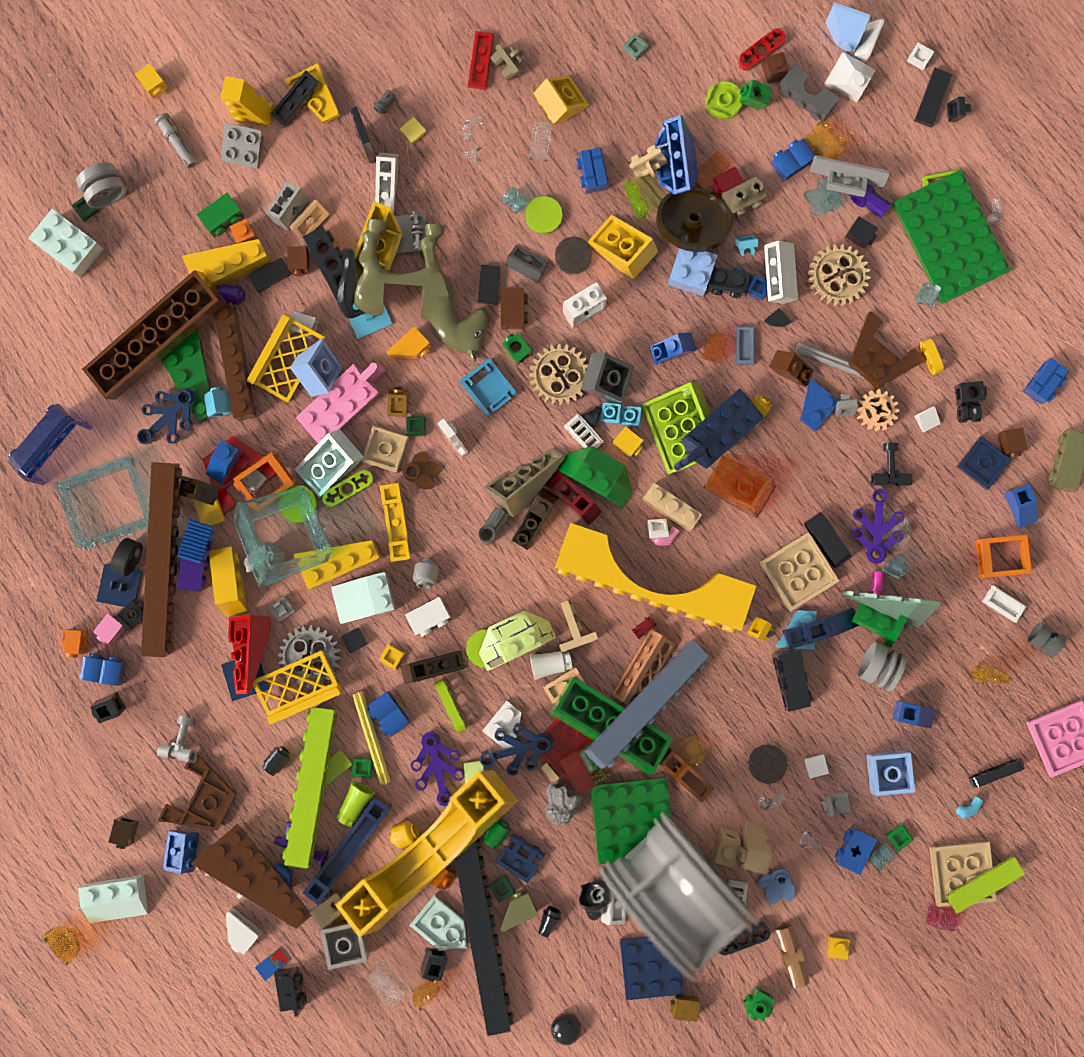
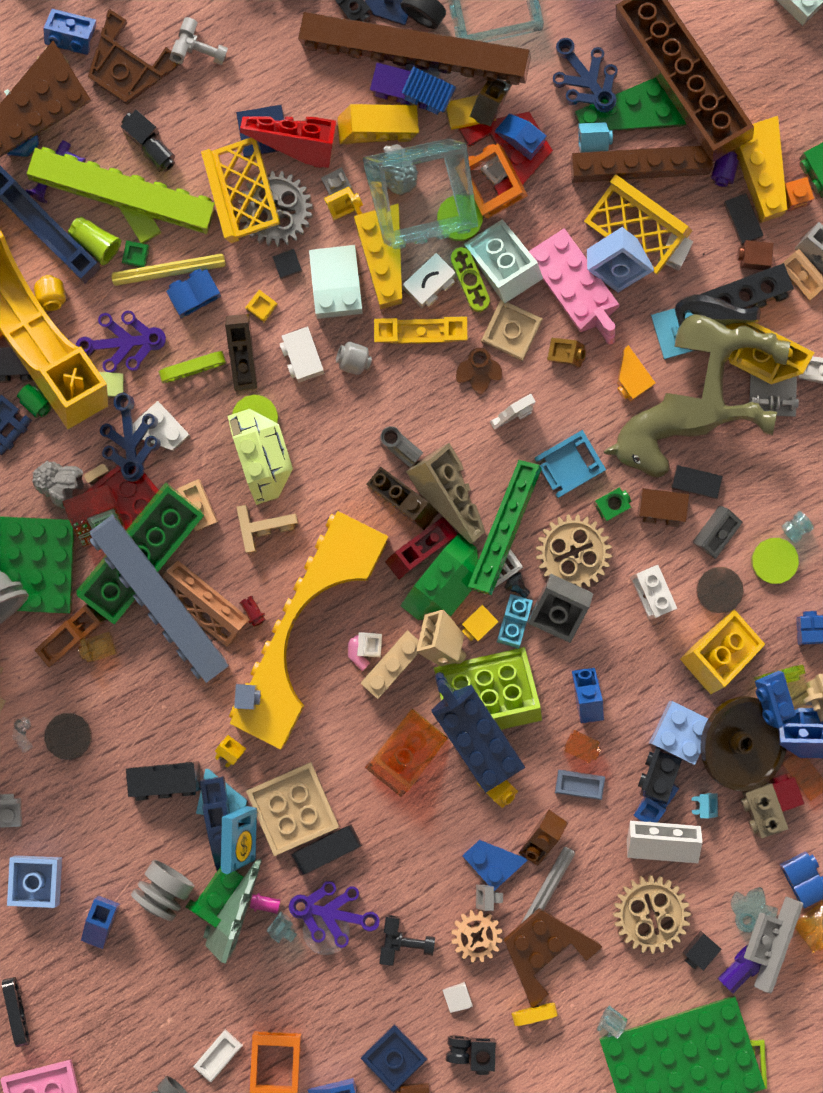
camera: 95 degrees right, 0 degrees up
(256, 780) = (138, 128): none -> black brick
(297, 600) = (343, 203): none -> yellow bracket
(353, 520) = (429, 281): none -> white brick
(416, 426) = (534, 370): dark green tile -> none
(548, 431) = (505, 527): none -> green plate
(550, 663) = (225, 491): white plant -> none
(646, 470) = (441, 639): none -> tan torso
(656, 198) = (775, 699): none -> blue bracket
(718, 618) = (247, 696): none -> sand blue plate
(777, 319) = (607, 830): black tile -> none
(816, 766) = (56, 794): white tile -> none
(833, 610) = (238, 843): none -> dark azure container
(984, 673) = (137, 1016): clear yellow bracket -> none

